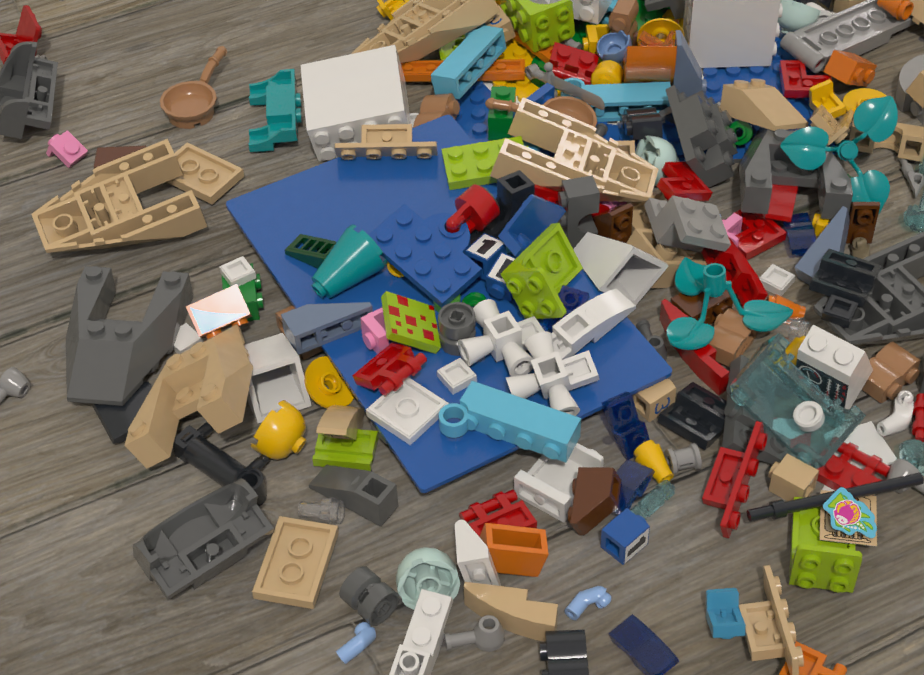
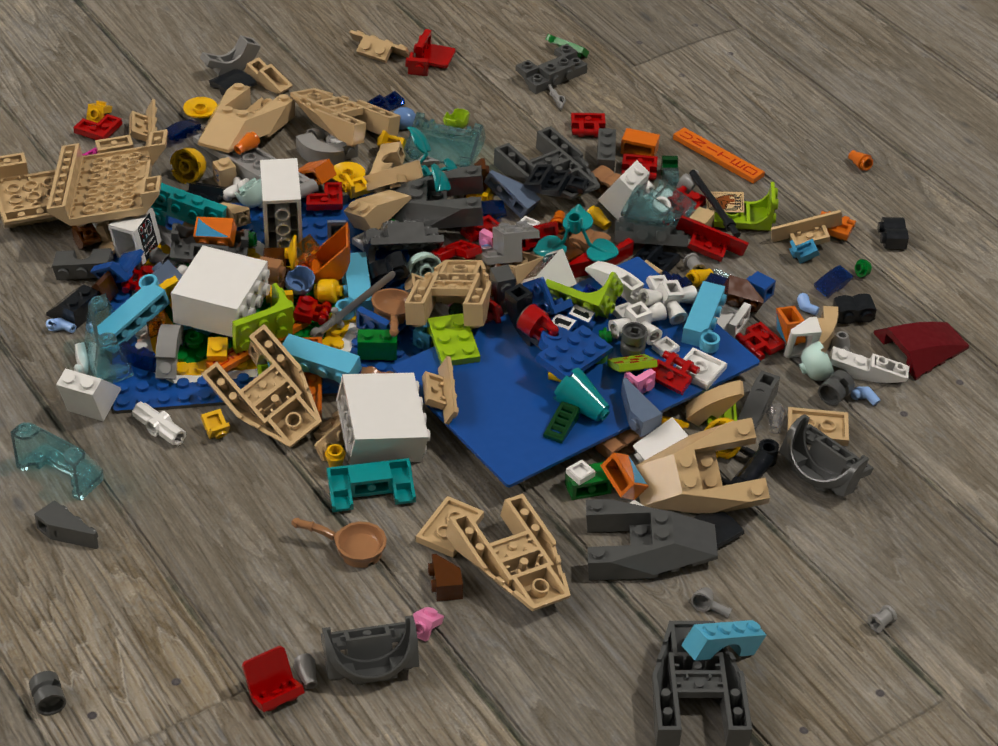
camera: 100 degrees left, 5 degrees down
(849, 514) = (727, 197): sticker -> none

